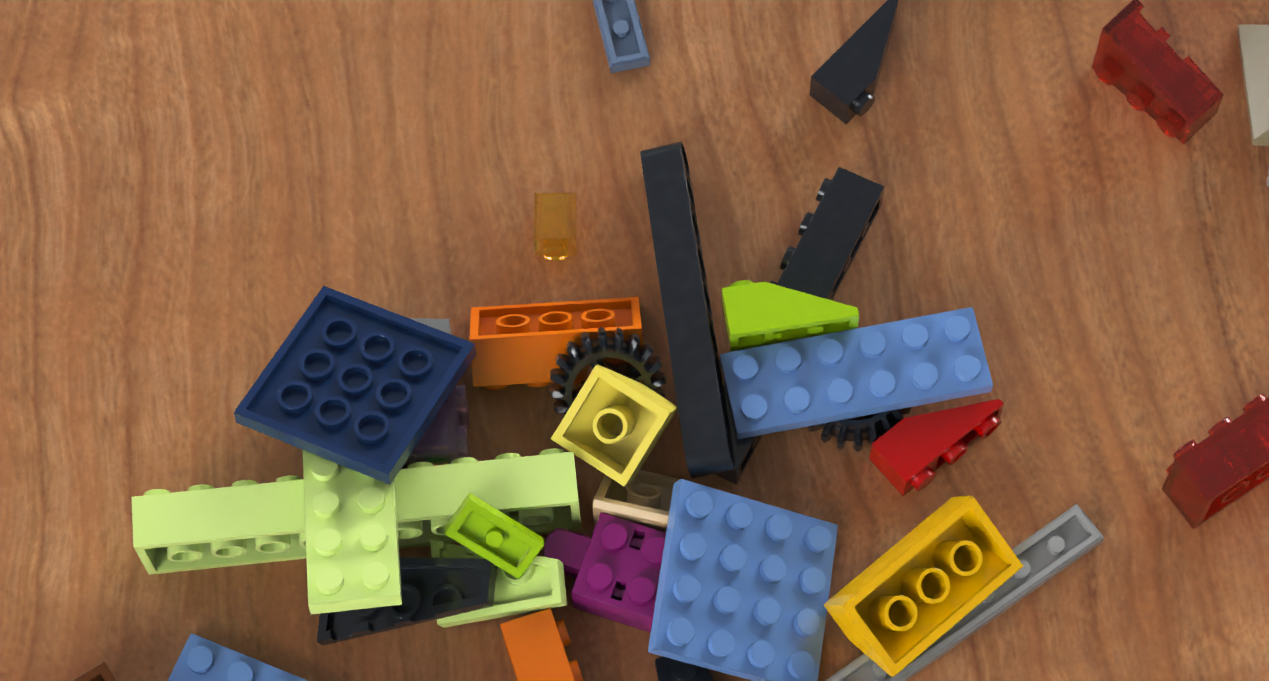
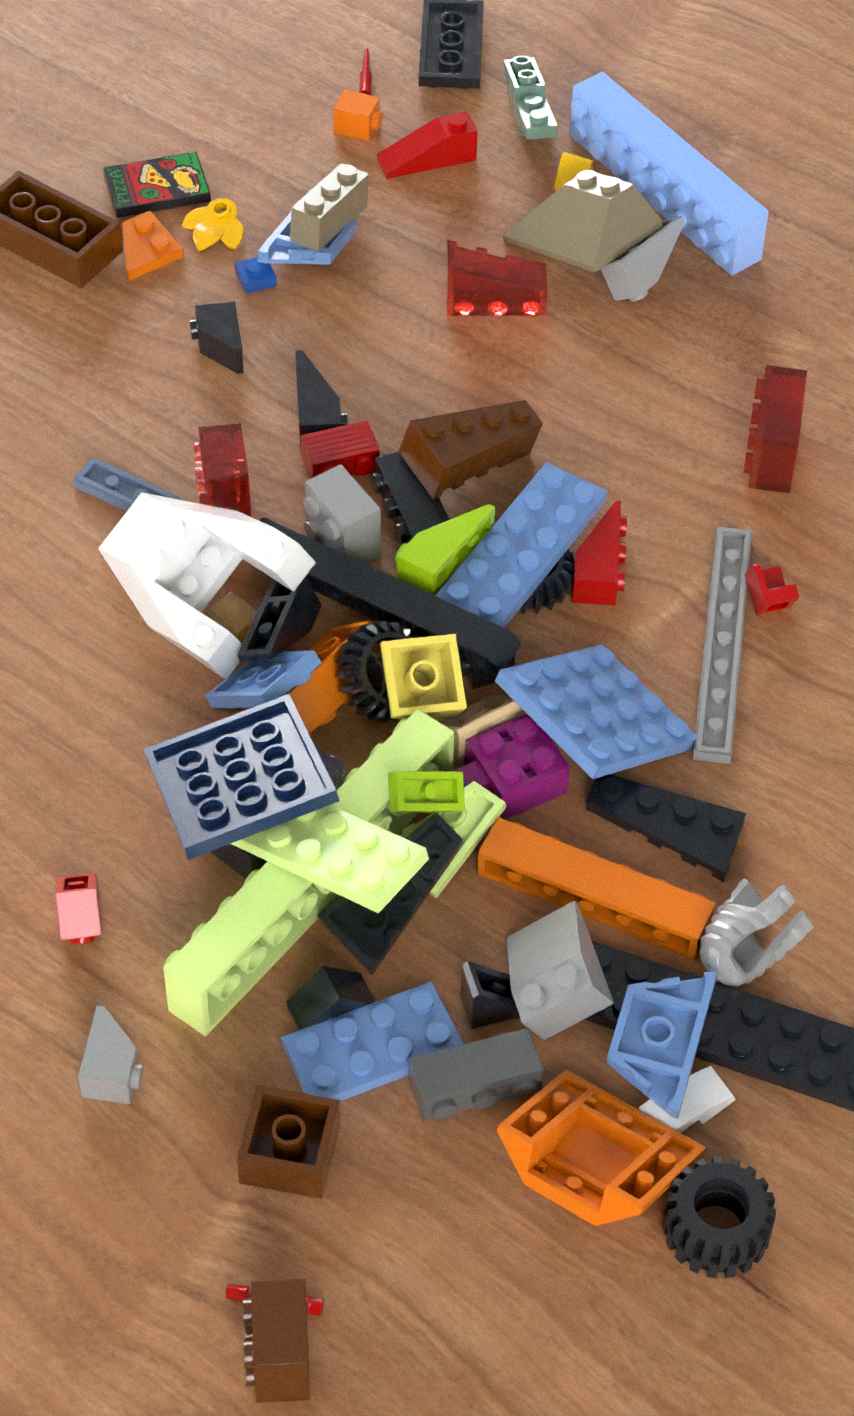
camera: 50 degrees left, 15 degrees down
(51, 527) = (109, 1062): none -> light grey slope
(167, 372) = (78, 908): none -> slope
(265, 637) = (328, 995): none -> black slope
(504, 303) = (263, 680): none -> medium blue plate
(566, 124) = (177, 558): none -> white wedge
(582, 259) = (280, 620): none -> black slope
(688, 75) = (222, 468): none -> clear red brick
(740, 203) = (342, 515): none -> light grey brick
(826, 131) = (346, 445): none -> red brick
(924, 584) = (690, 628): yellow slope -> none
(931, 226) = (468, 443): none -> reddish brown wedge
(1045, 610) = (769, 589): none -> red panel

